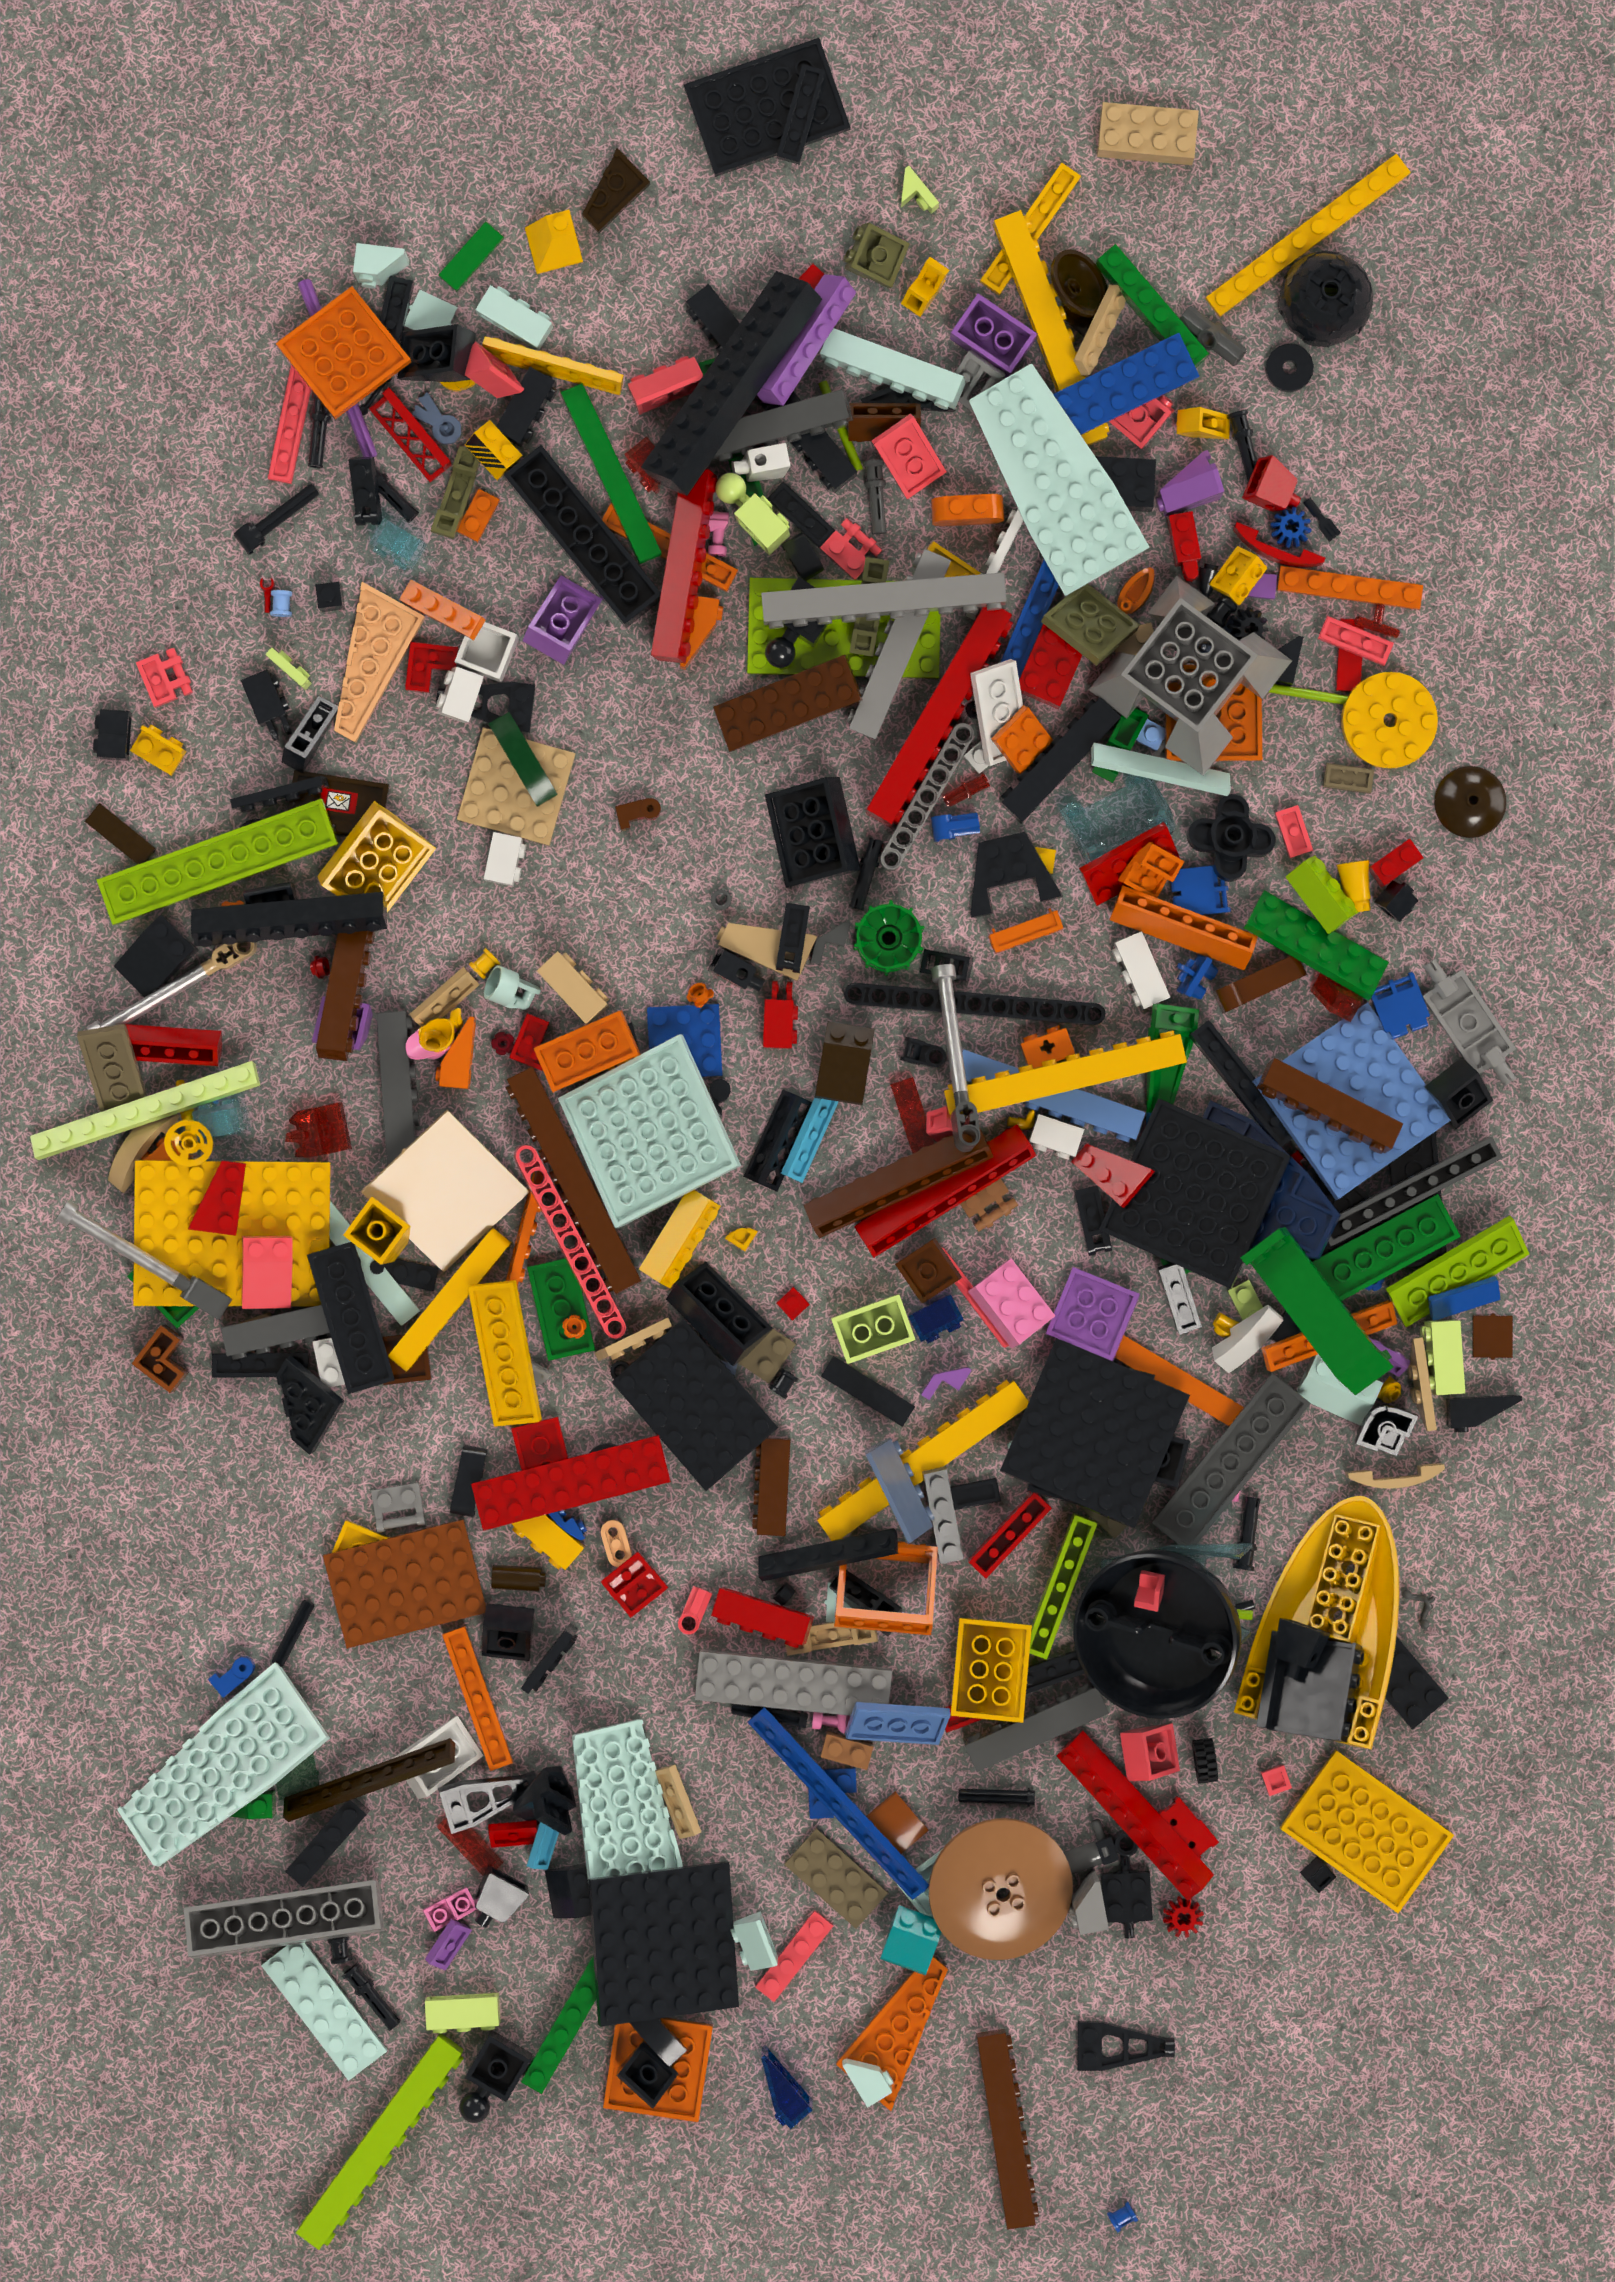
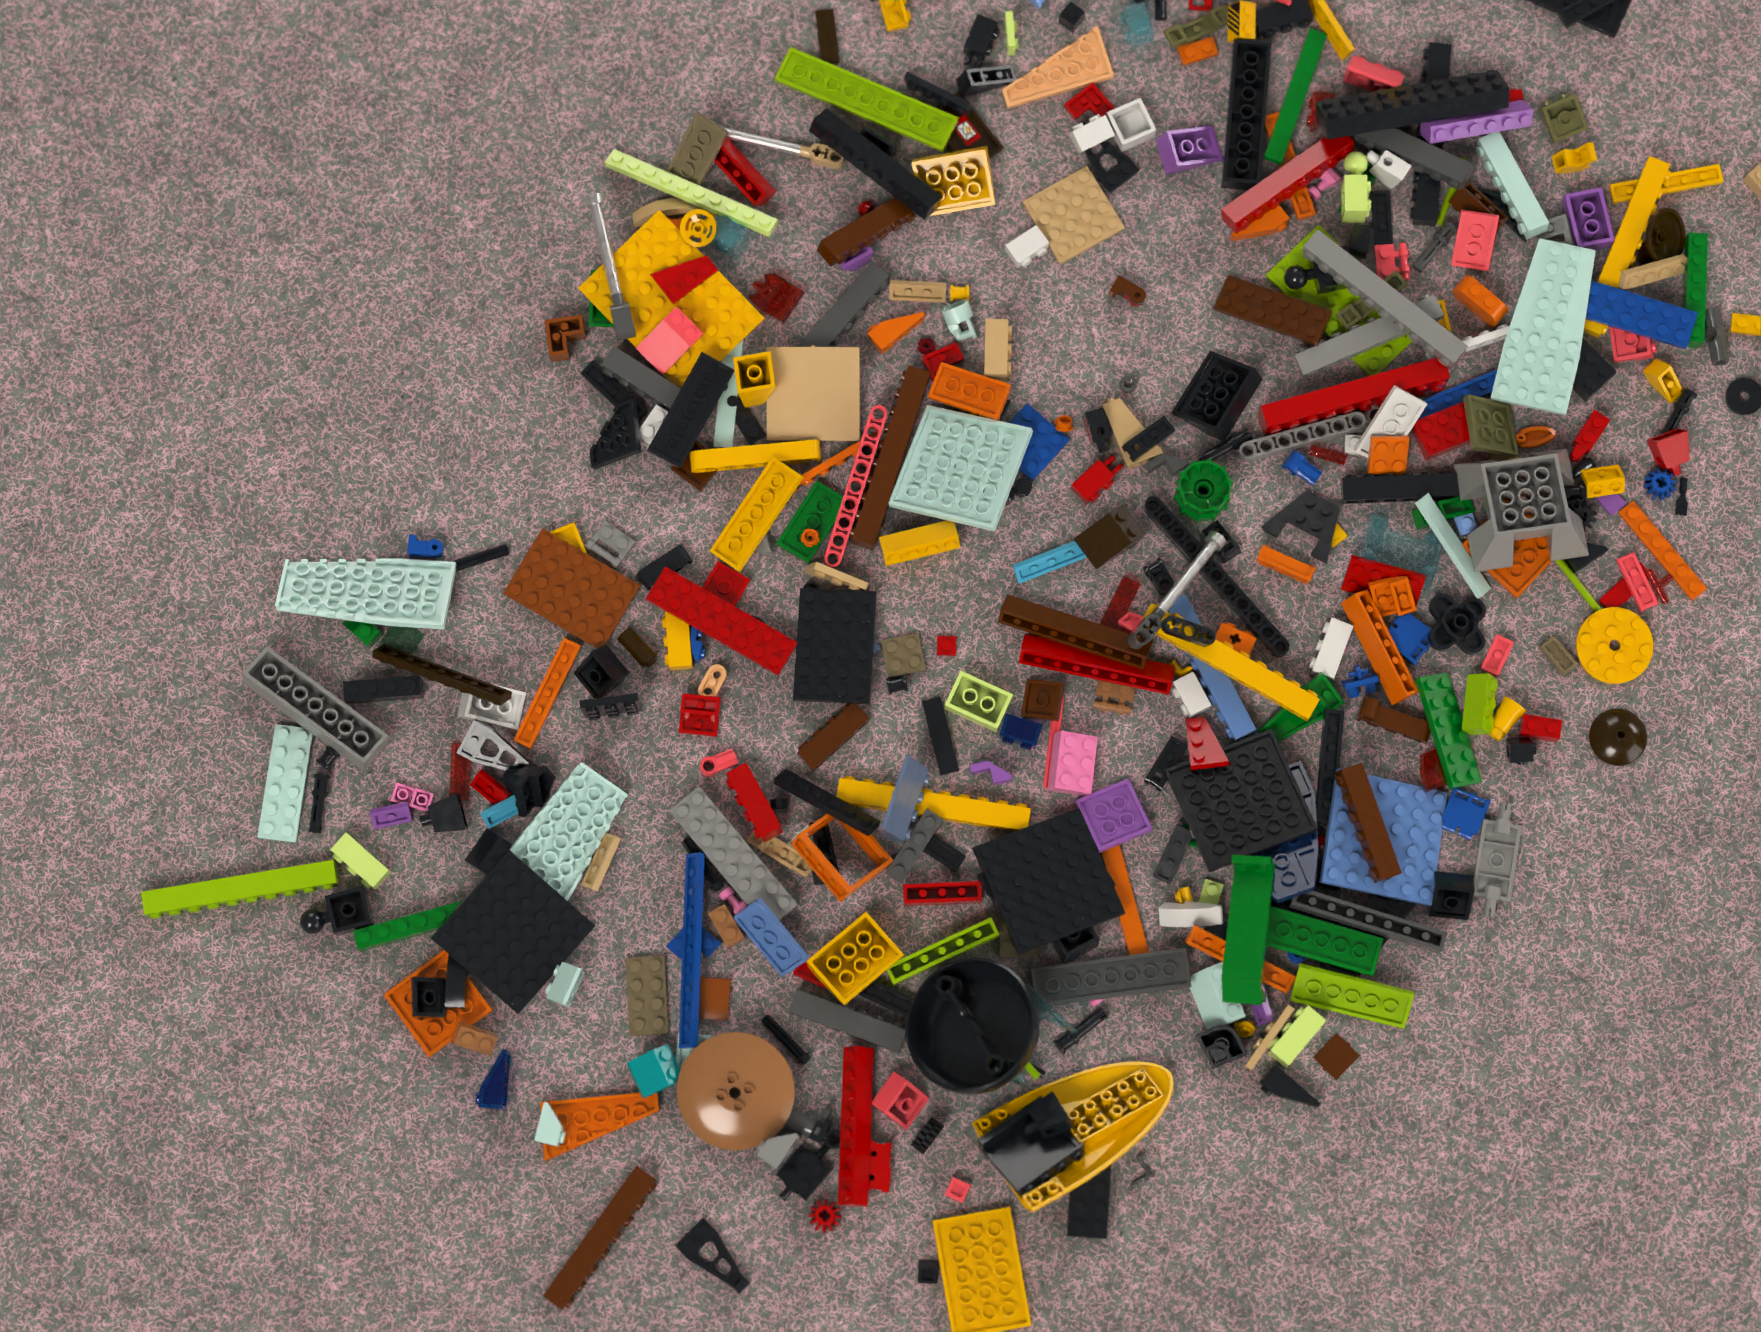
camera: 45 degrees right, 10 degrees down
(155, 956) = (781, 117): black slope -> none
(434, 1038) = (891, 305): yellow hair -> none
(442, 609) = (1127, 80): orange plate -> none
(523, 759) = (1092, 202): dark green slope -> none
(718, 1313) = (899, 608): black slope -> none
(723, 2068) = (474, 1038): none -> medium nougat brick
(741, 1237) = (954, 581): yellow tile -> none
(775, 1139) = (1044, 536): black fence -> none
(794, 1955) = (578, 1017): coral plate -> none
(915, 187) = (1620, 101): yellowish green slope -> none
(993, 1101) = (1196, 628): none -> black beam
(1149, 1591) = (992, 1000): coral panel -> none
(1192, 487) = (1622, 407): medium lavender slope -> none
(1248, 536) = (1651, 510): red slope -> none
(1425, 1473) = (1221, 1095): tan slope -> none
(1464, 1298) = (1341, 1016): blue tile -> none

